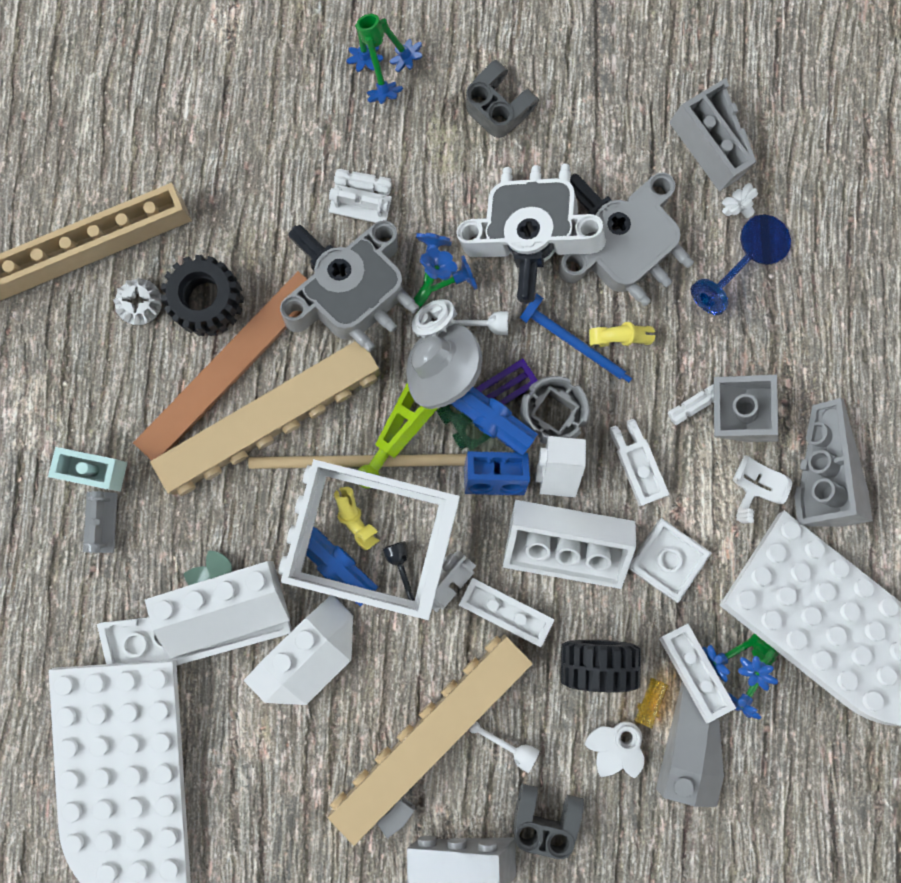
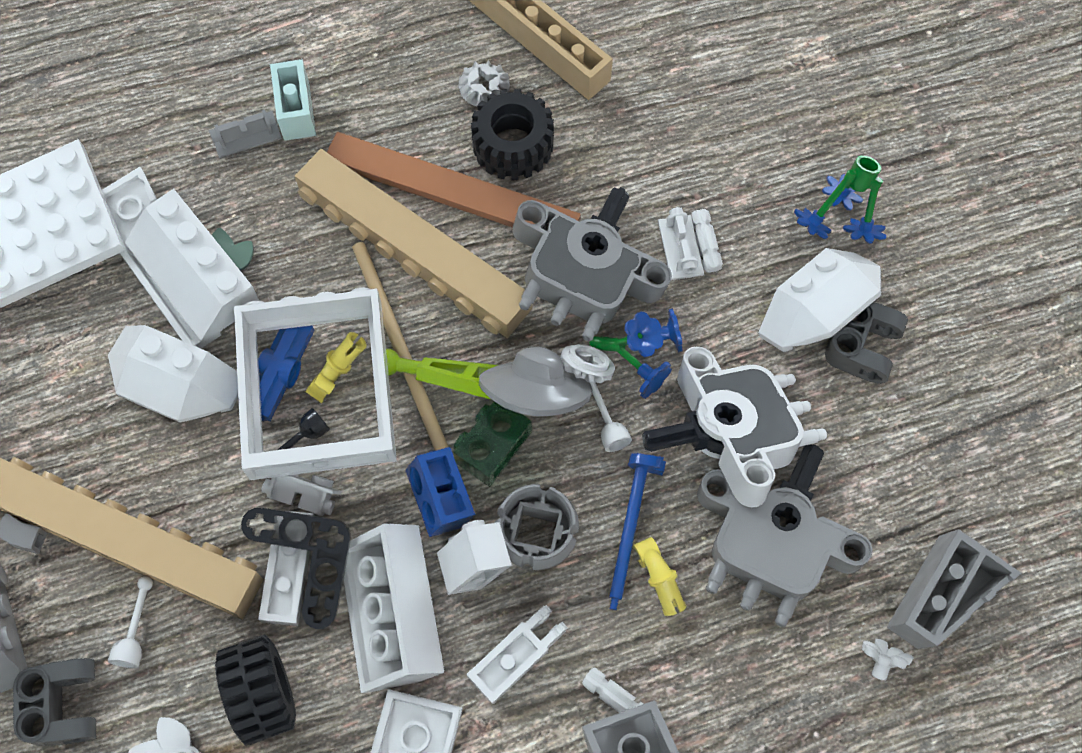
camera: 70 degrees right, 15 degrees down
(456, 115) = (820, 299): none -> white wedge
(495, 420) = (496, 460): blue piece -> none
(503, 374) = (571, 489): dark purple tile -> none
(510, 581) = (321, 554): none -> black beam
(763, 241) = (852, 705): clear blue piece -> none

